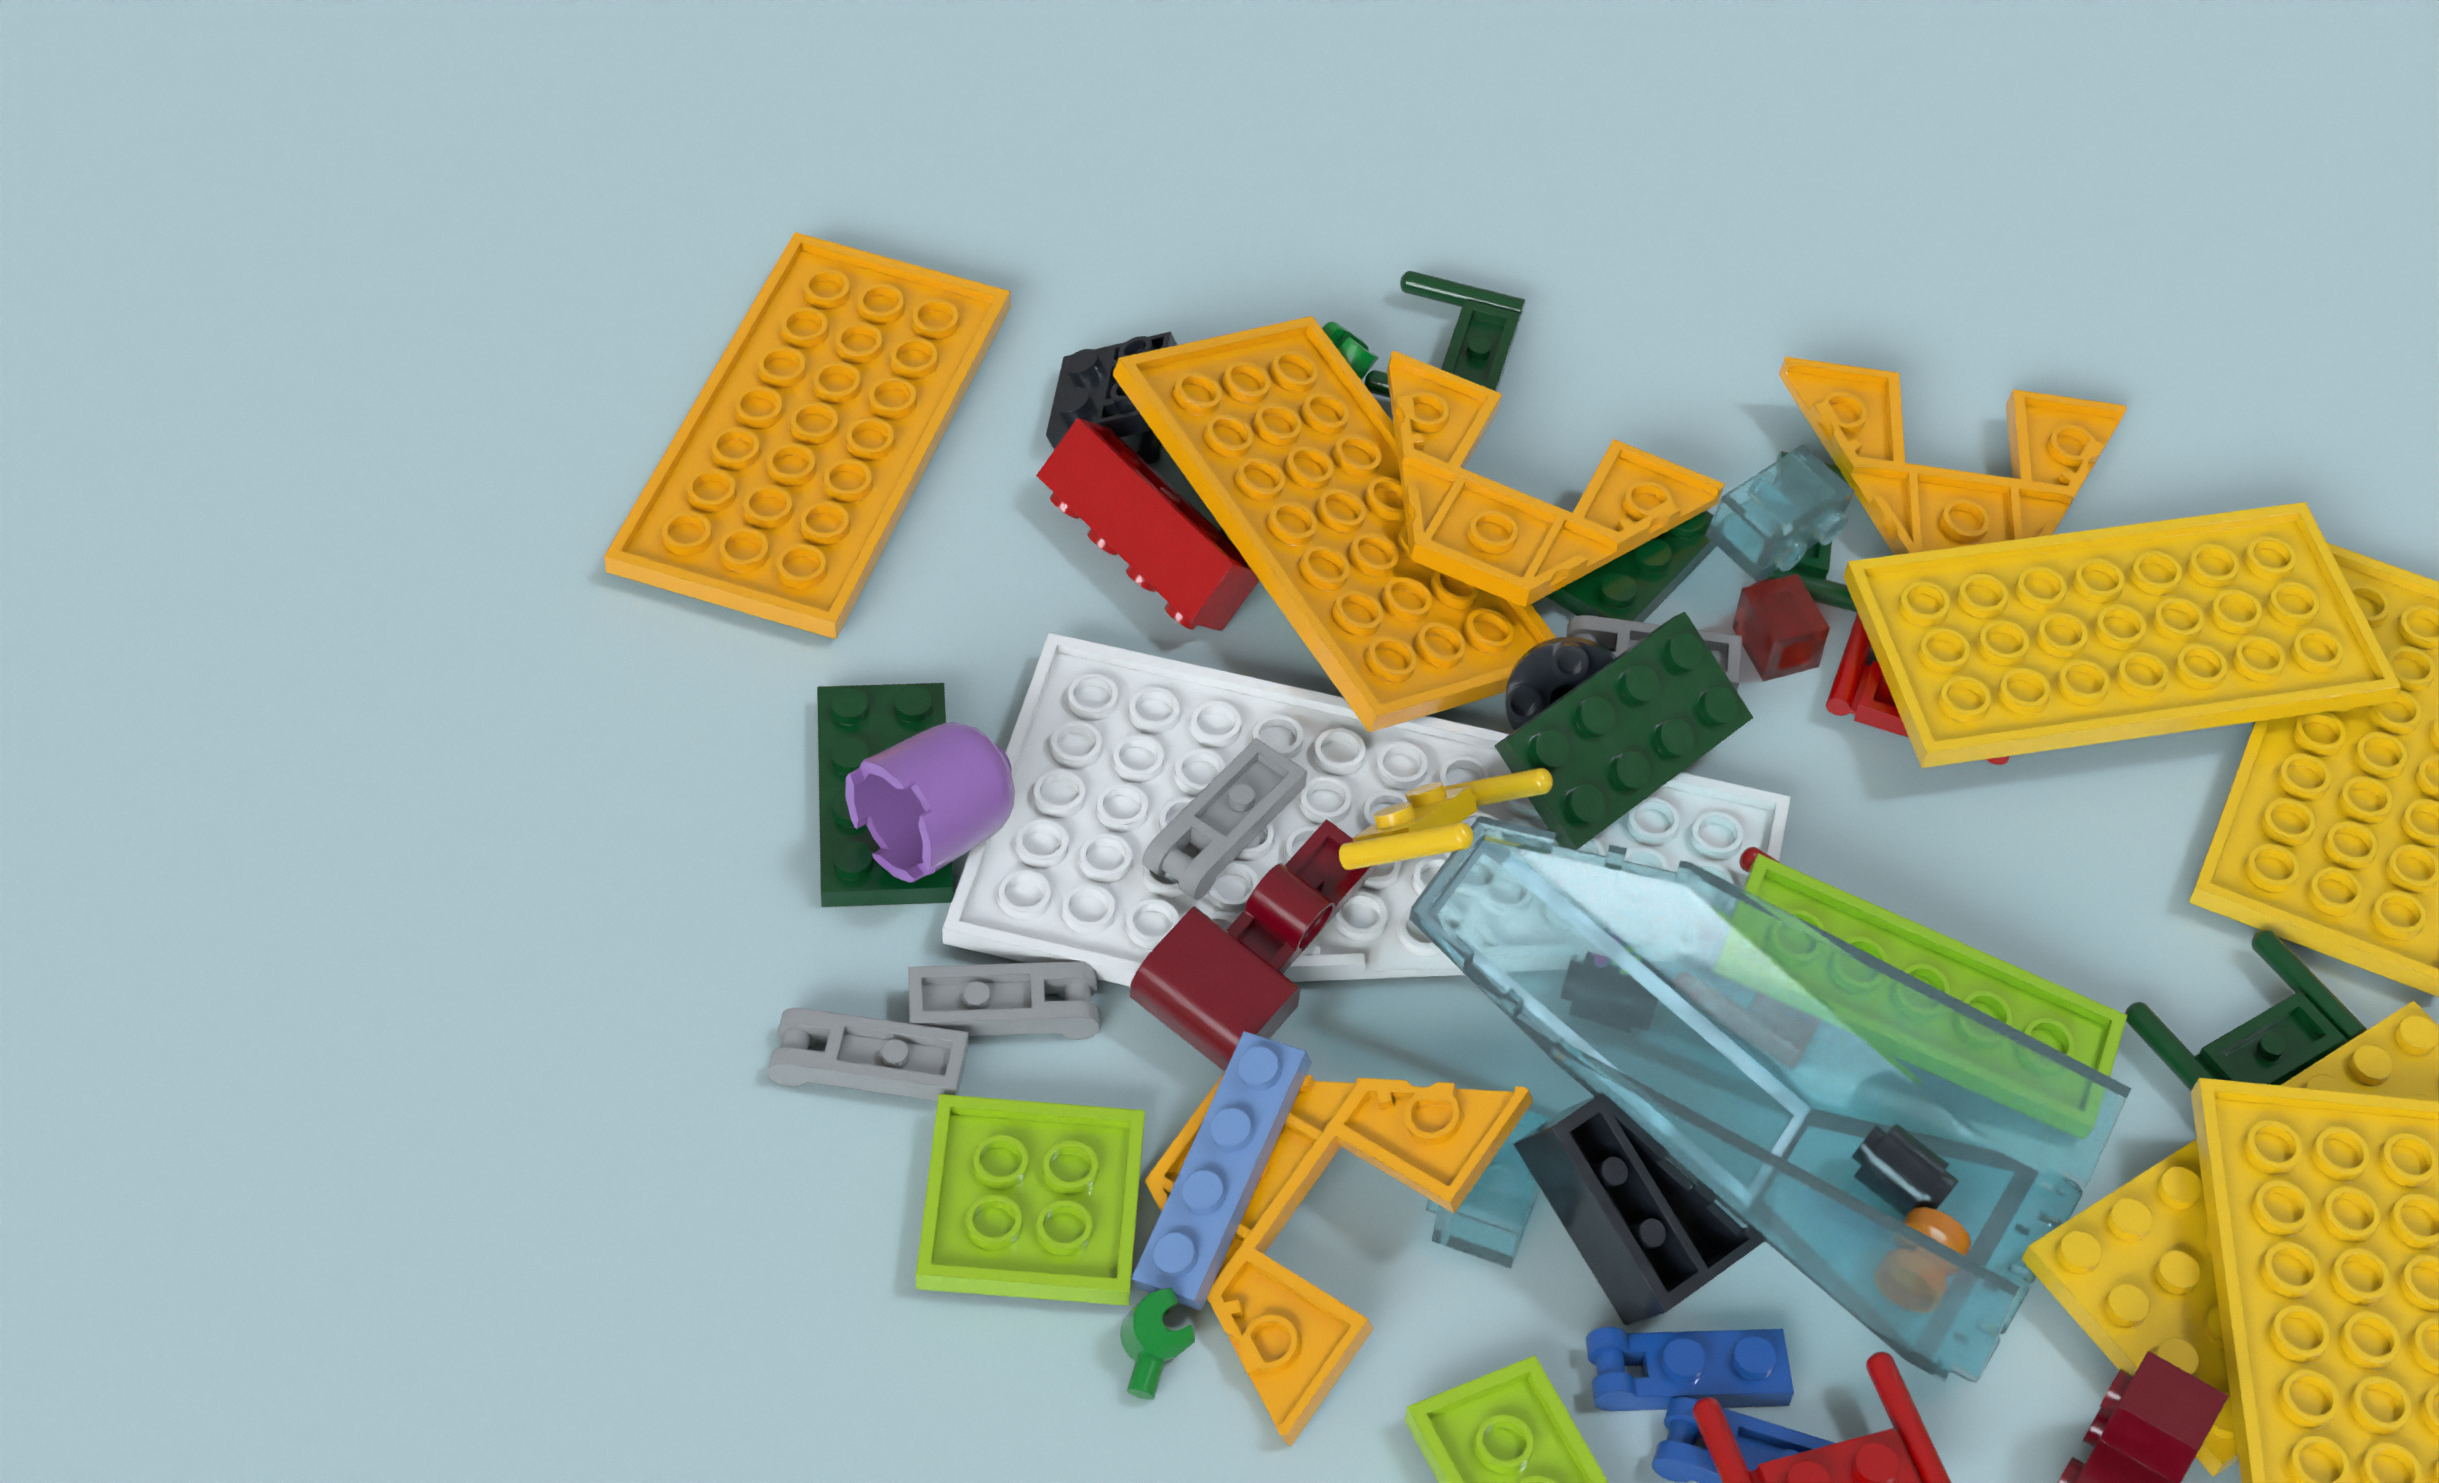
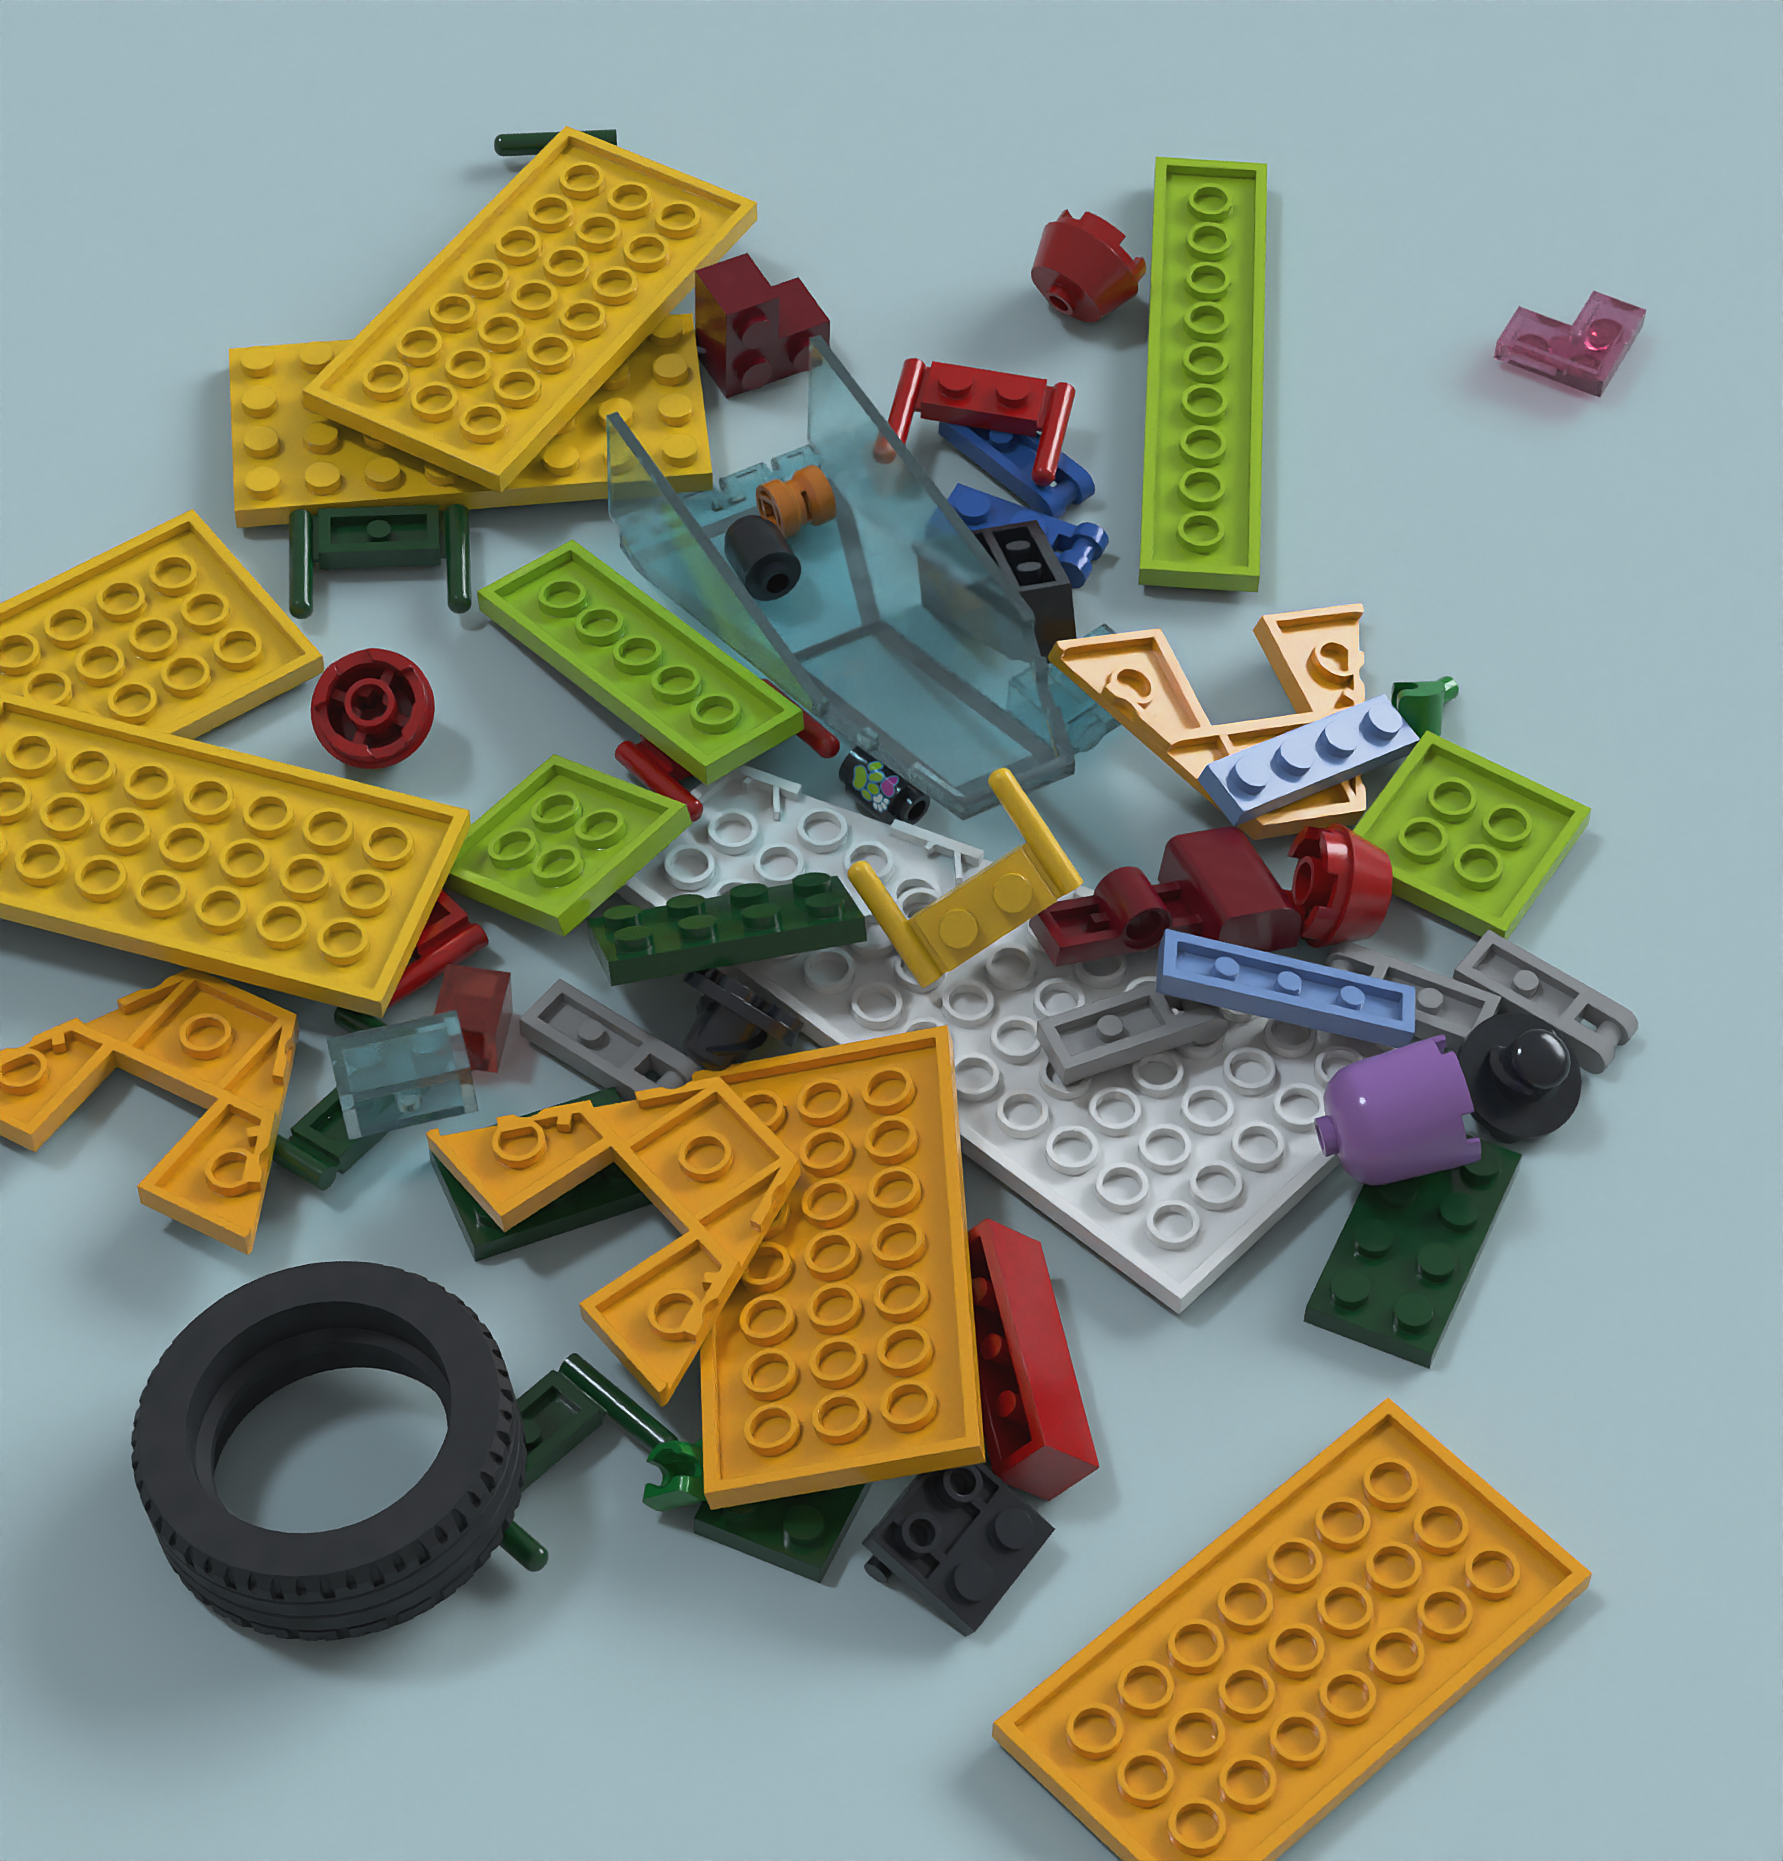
camera: 150 degrees left, 0 degrees up
(855, 946) = (1519, 1077): none -> black plate
(1103, 883) = (1285, 989): none -> medium blue plate
(1119, 1046) = (1339, 885): none -> red cone
(1584, 319) = (365, 1572): none -> black tyre
(1834, 787) = (563, 844): none -> lime plate
(2096, 832) = (372, 708): none -> red cone

